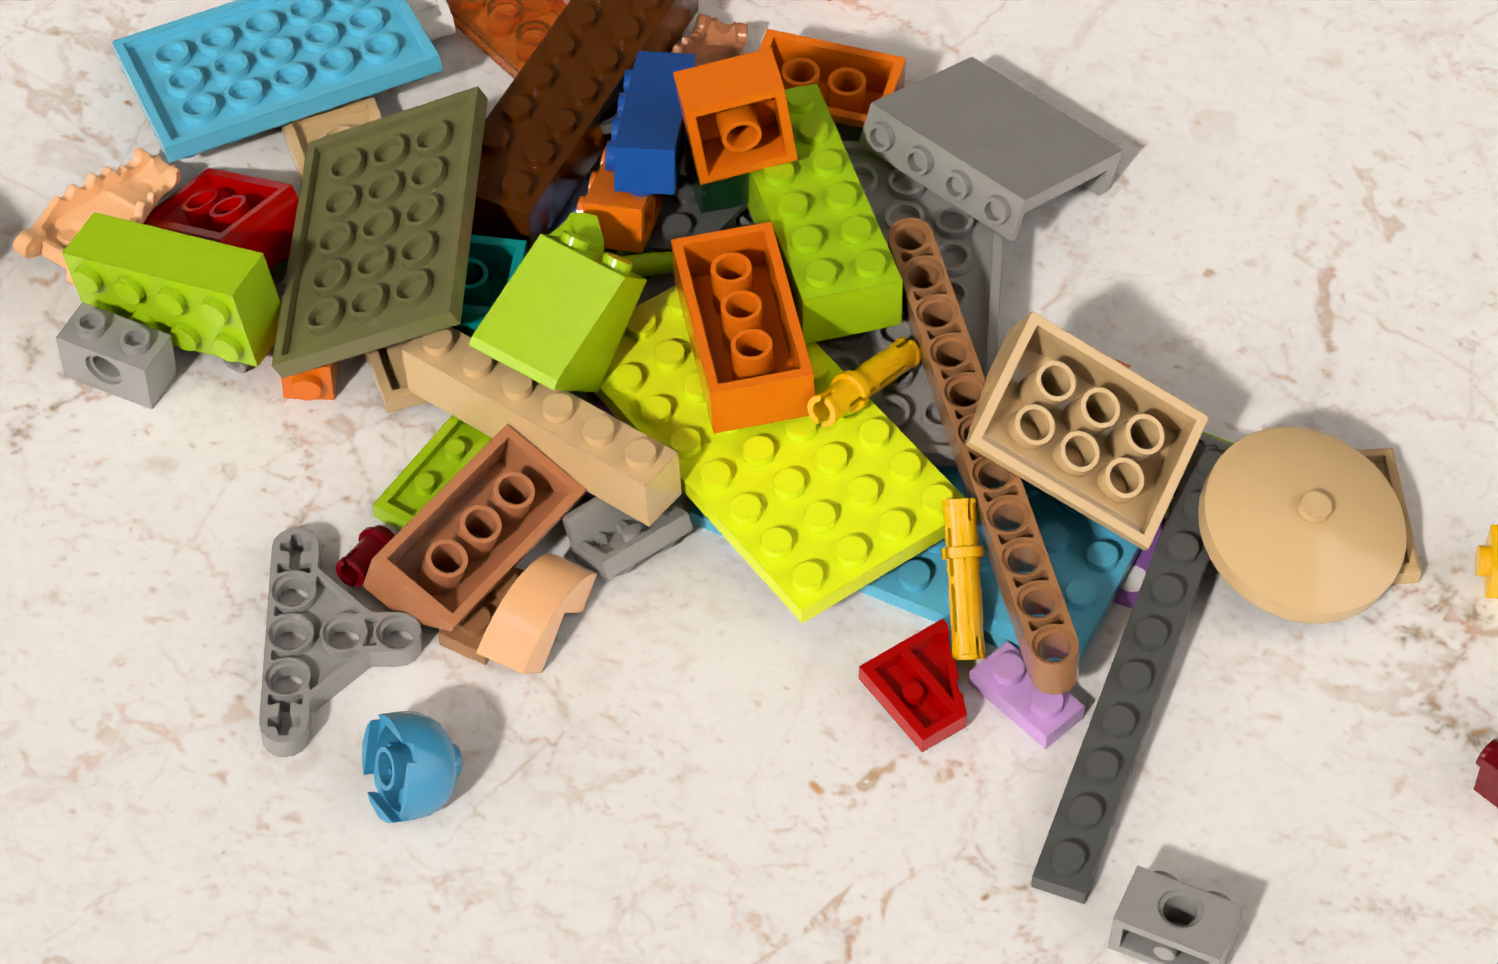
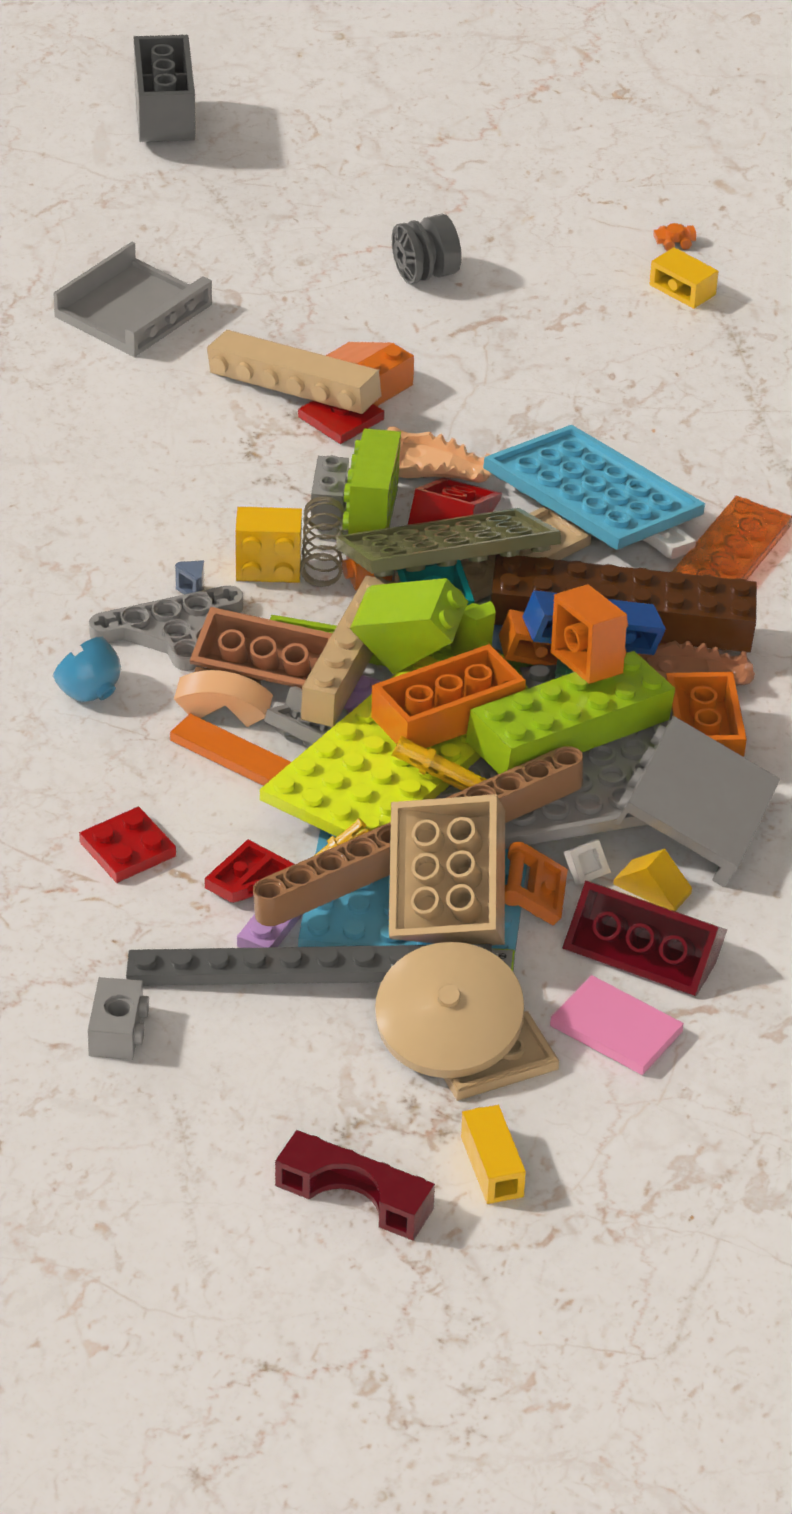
camera: 70 degrees right, 10 degrees down
(175, 389) = (324, 526): none -> dark tan piece
(229, 457) = (268, 544): none -> yellow brick
(240, 582) = (189, 576): none -> sand blue slope
(645, 639) = (227, 749): none -> orange tile
(793, 824) = (127, 844): none -> red plate
(1038, 297) = (587, 862): none -> white plate
(1083, 252) = (655, 880): none -> yellow slope
(1200, 289) = (644, 938): none -> dark red slope
(1337, 370) = (616, 1024): none -> bright pink tile

